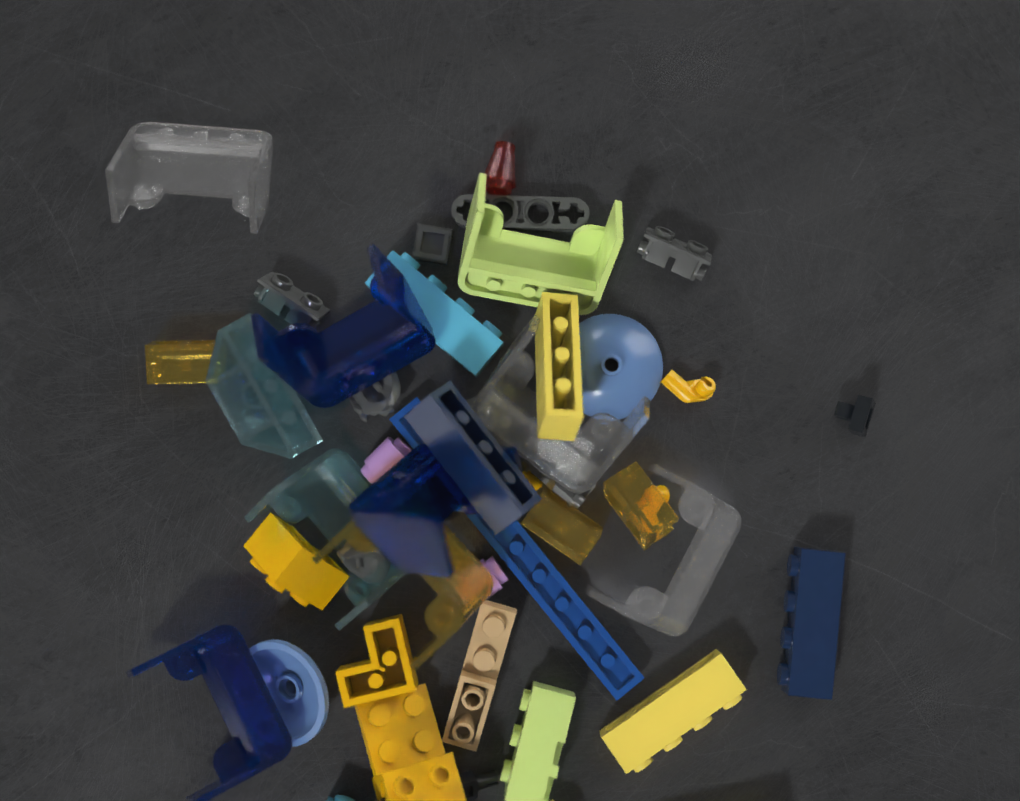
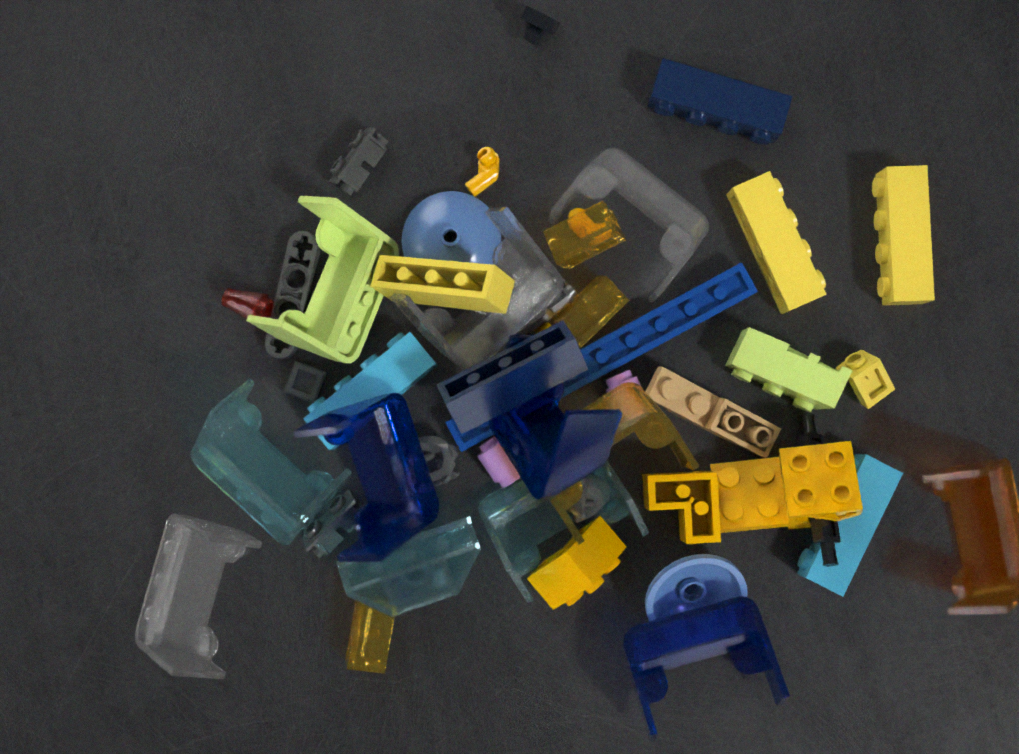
camera: 85 degrees left, 0 degrees up
(328, 214) = (257, 473): none -> clear light blue windscreen

